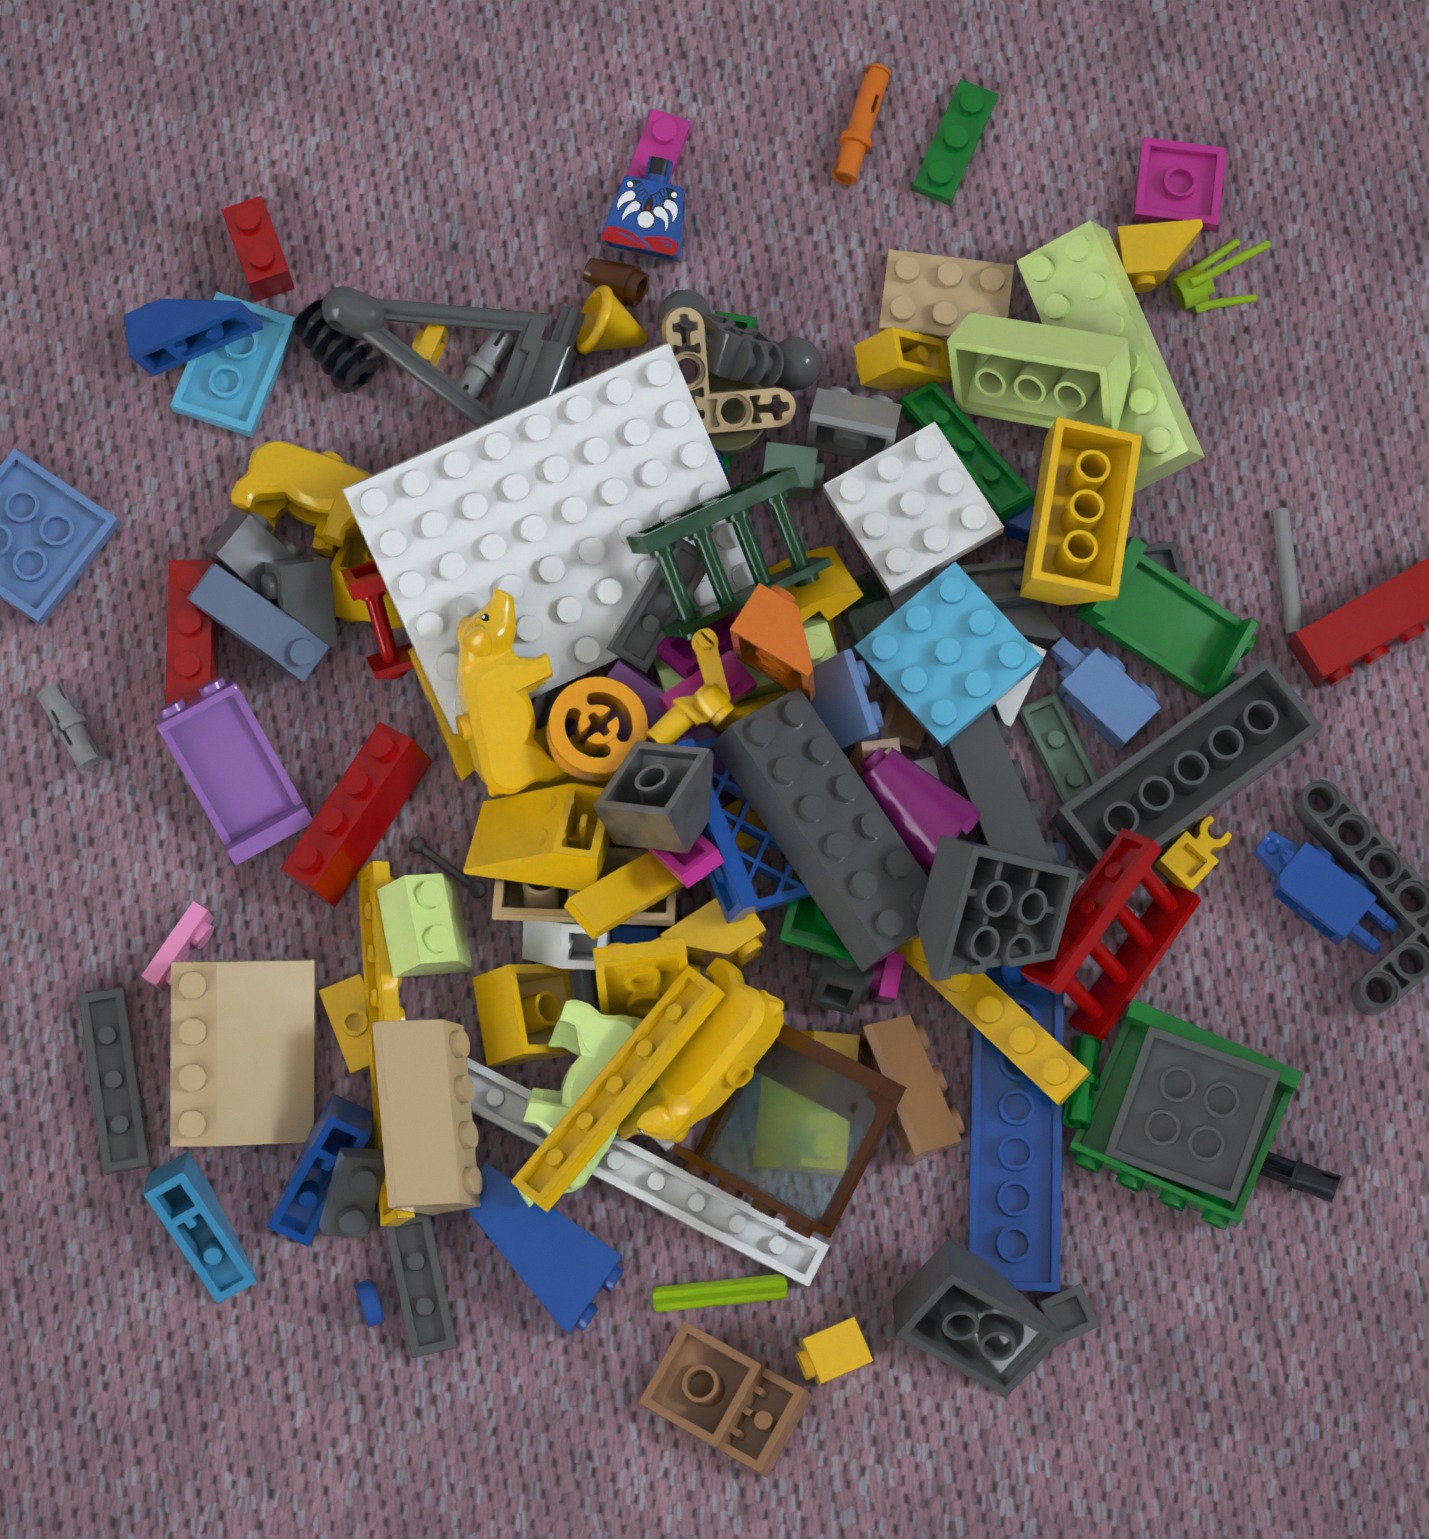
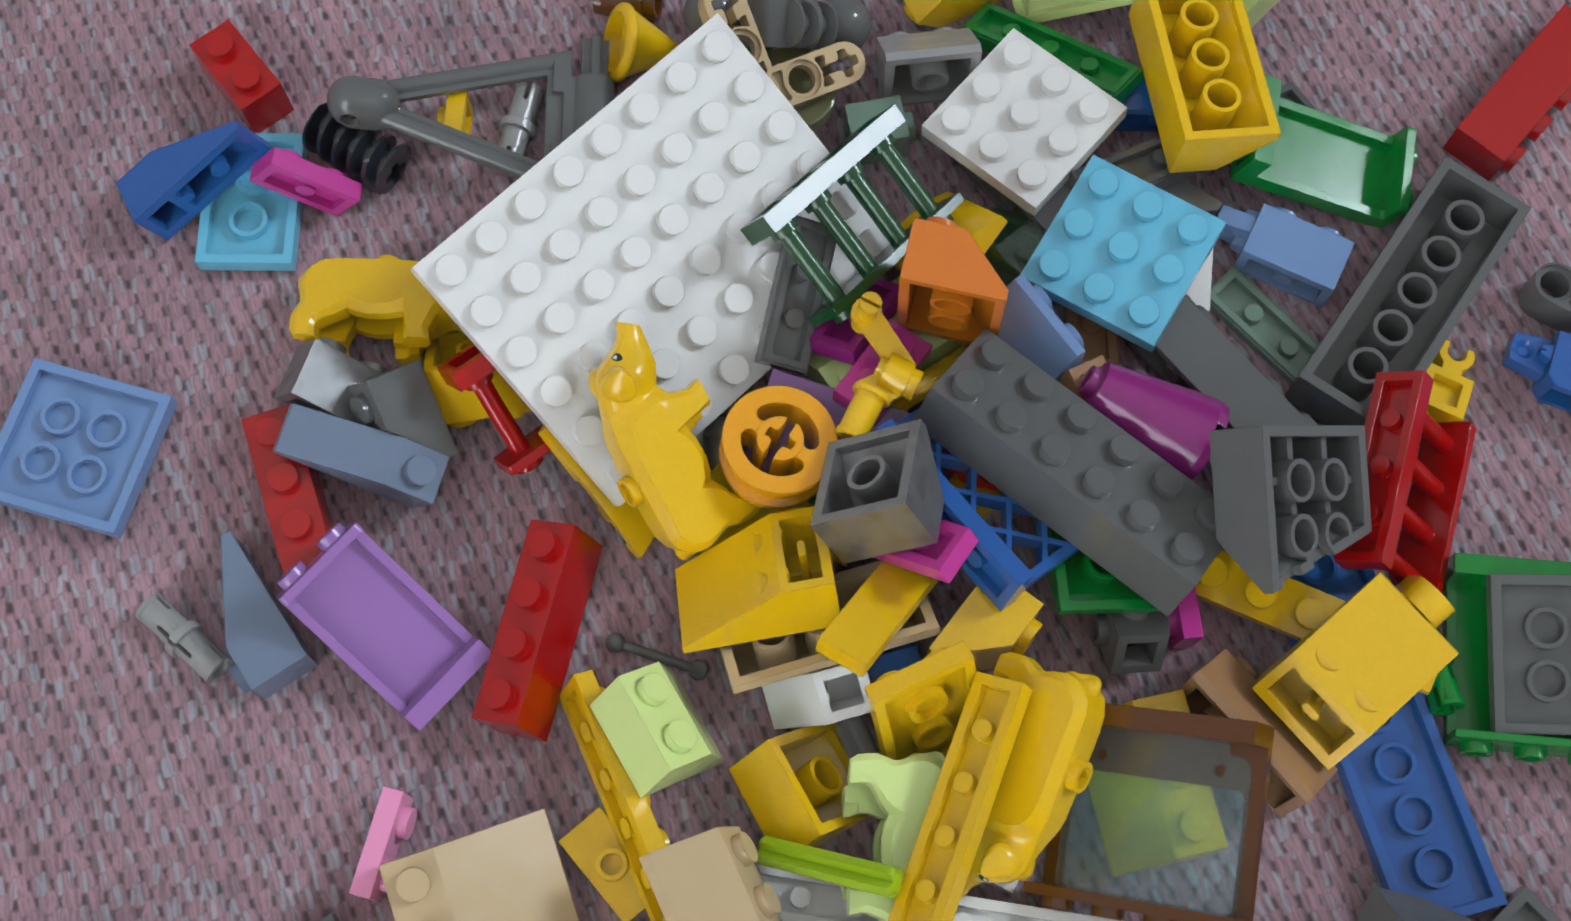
camera: 15 degrees left, 5 degrees down
(131, 739) = (257, 629): none -> sand blue slope
(293, 372) = (305, 181): none -> dark pink plate
(520, 1079) = (830, 866): none -> lime axle
(997, 1065) = (1354, 670): none -> yellow slope
(1079, 1029) = (1426, 599): none -> yellow beam
(1287, 571) = (1413, 78): light grey bar -> none

